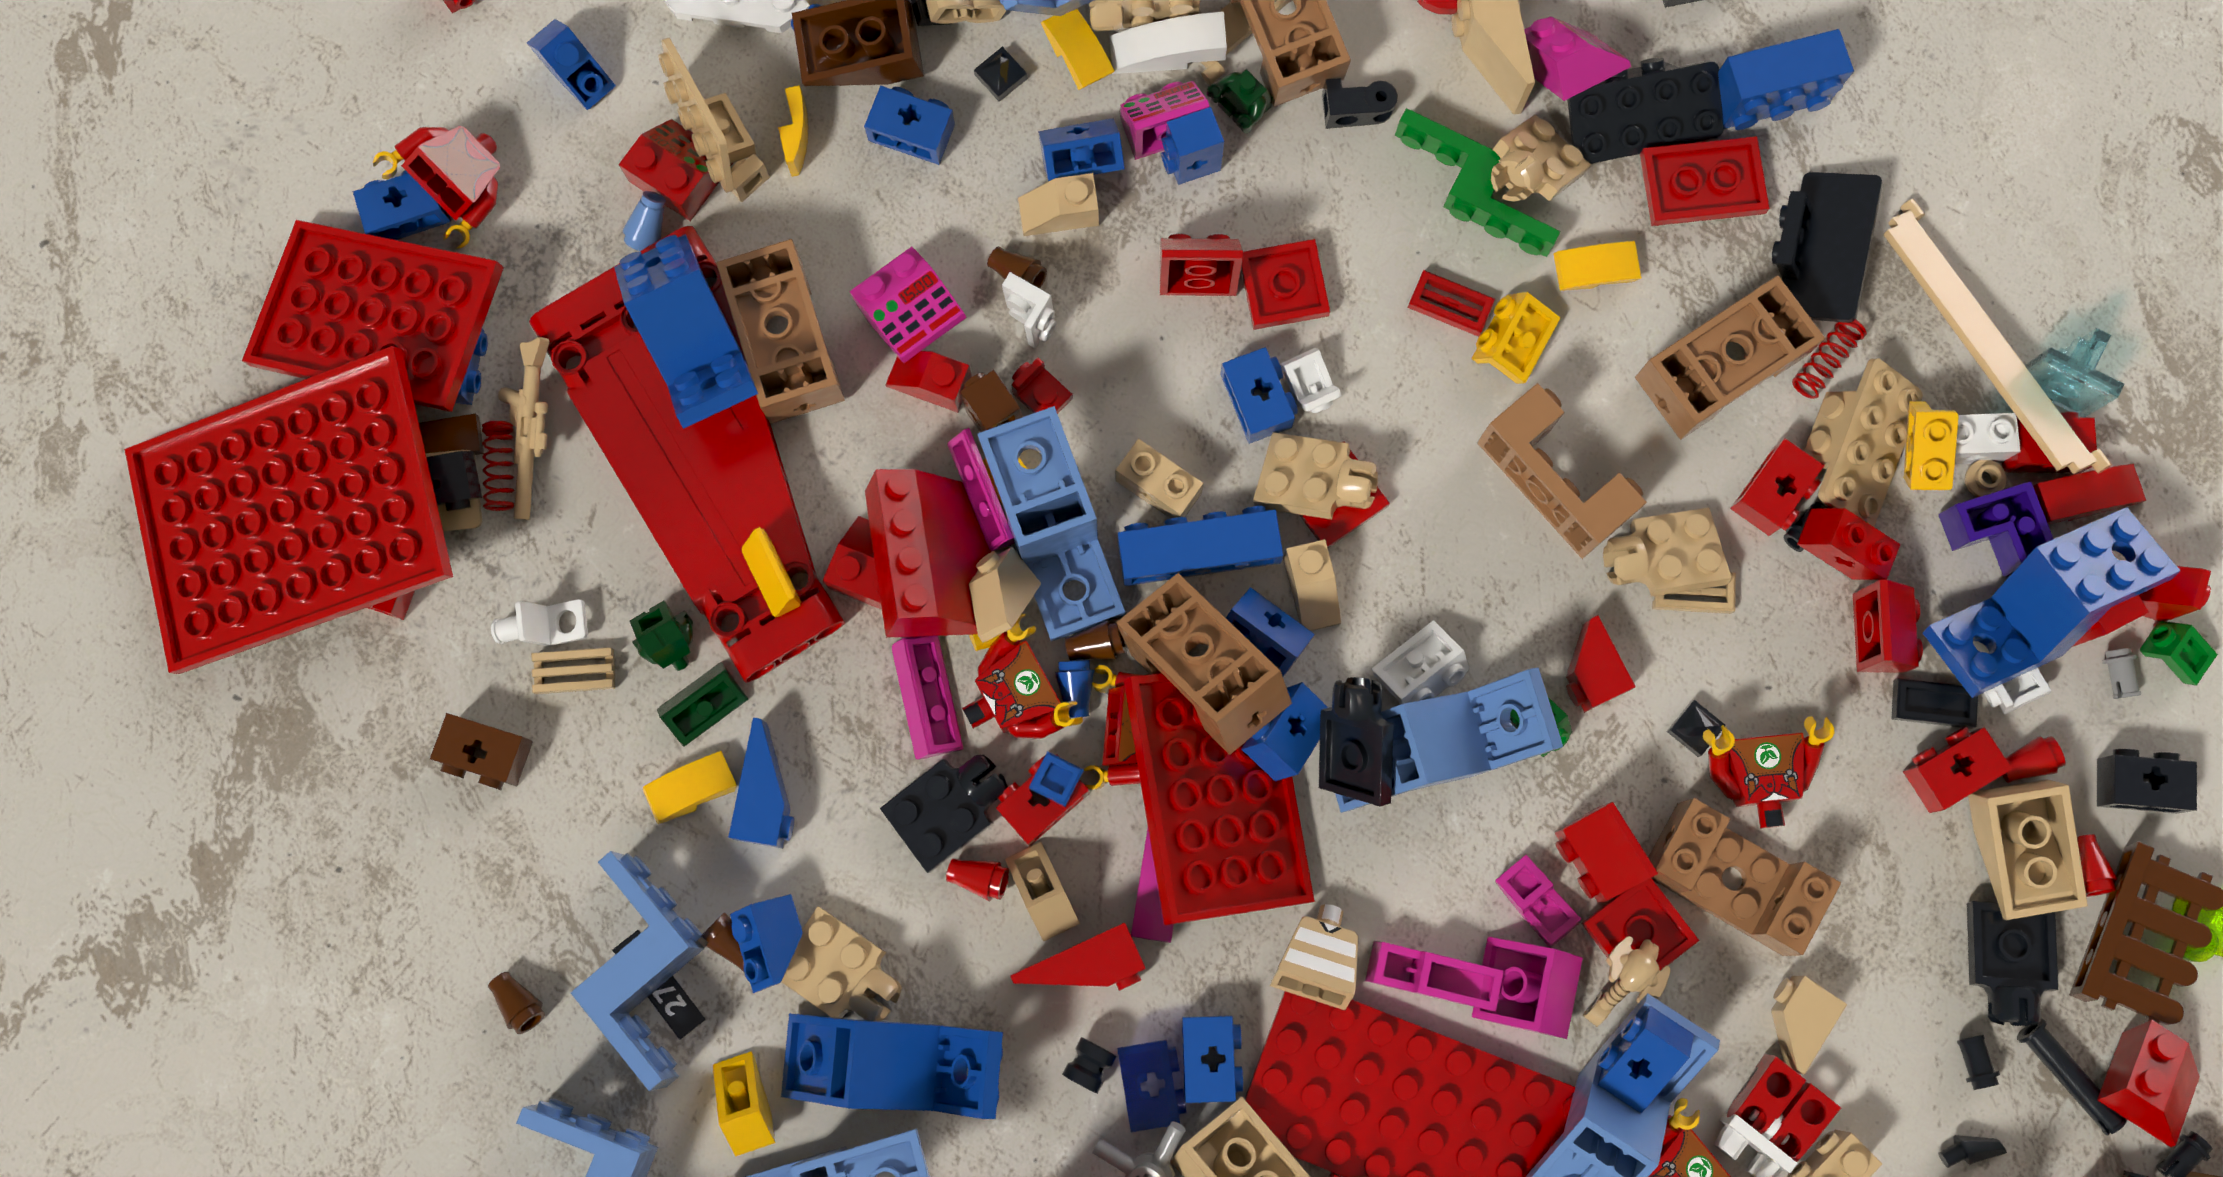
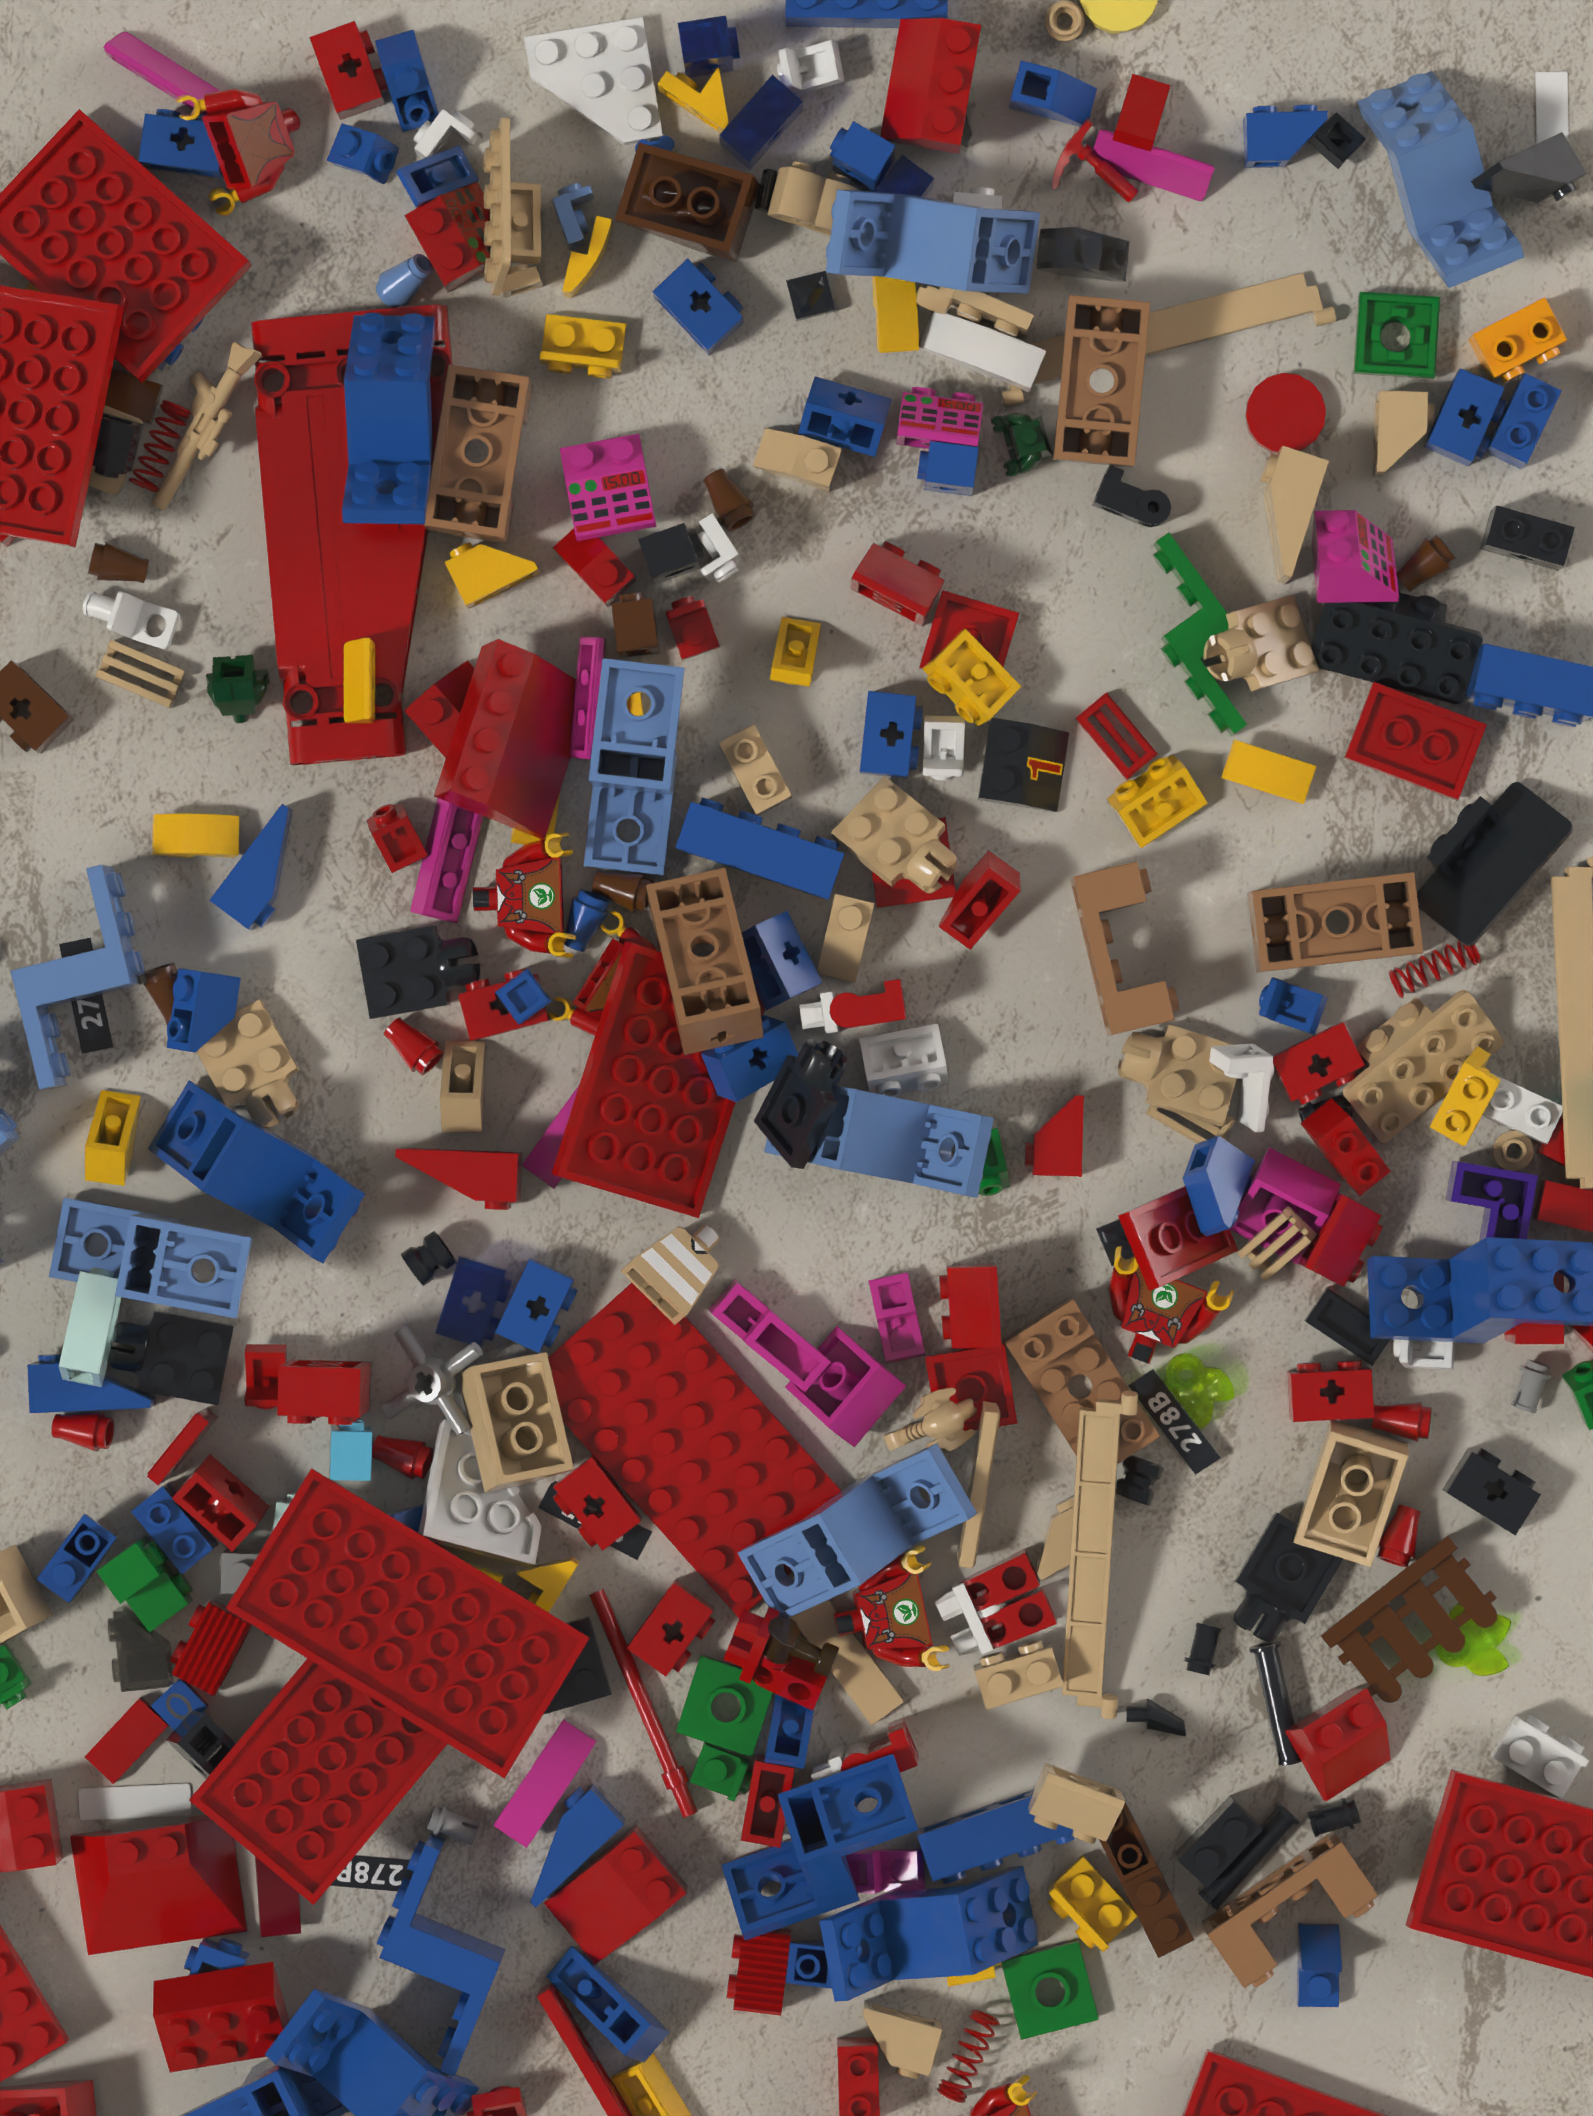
camera: 25 degrees right, 10 degrees up
(342, 160) = (156, 68): none -> dark pink slope
(497, 69) = (349, 94): none -> red brick
(506, 585) = (116, 564): none -> reddish brown cone
(561, 138) = (363, 153): none -> blue bracket
(616, 95) = (434, 135): none -> white bracket
(626, 124) = (437, 175): none -> blue slope
(702, 704) = (242, 763): dark green slope -> none
(761, 103) = (571, 221): none -> medium blue bracket
(827, 205) = (583, 345): none -> yellow bracket
(839, 430) = (486, 572): none -> yellow slope
(871, 698) = (396, 836): none -> red bracket
(990, 331) = (671, 552): none -> black brick
(1000, 592) = (557, 805): tan slope -> none
(1141, 368) = (795, 651): none -> yellow slope
(1305, 309) = (971, 679): none -> yellow bracket
(1358, 641) = (855, 1011): none -> red hips
(1384, 364) = (1023, 765): none -> black slope
(1414, 493) = (980, 899): none -> red slope
(1632, 31) = (1426, 563): none -> reddish brown cone
(1645, 1058) = (903, 1495): blue brick -> none
(1697, 1009) = (979, 1483): none -> tan tile
(1730, 450) = (1292, 1005): none -> blue bracket
(1738, 529) = (1256, 1071): none -> white bracket
(1749, 694) = (1169, 1239): none -> red plate
(1756, 633) = (1216, 1182): none -> blue slope
(1821, 625) = (1281, 1184): none -> dark pink slope
(1825, 685) = (1260, 1259): none -> tan tile
(1834, 937) = (1138, 1478): none -> black wheel
(1837, 834) = (1200, 1390): none -> clear neon green plate
(1838, 1021) = (1092, 1552): none -> tan piece
(1852, 874) = (1174, 1421): none -> black sticker

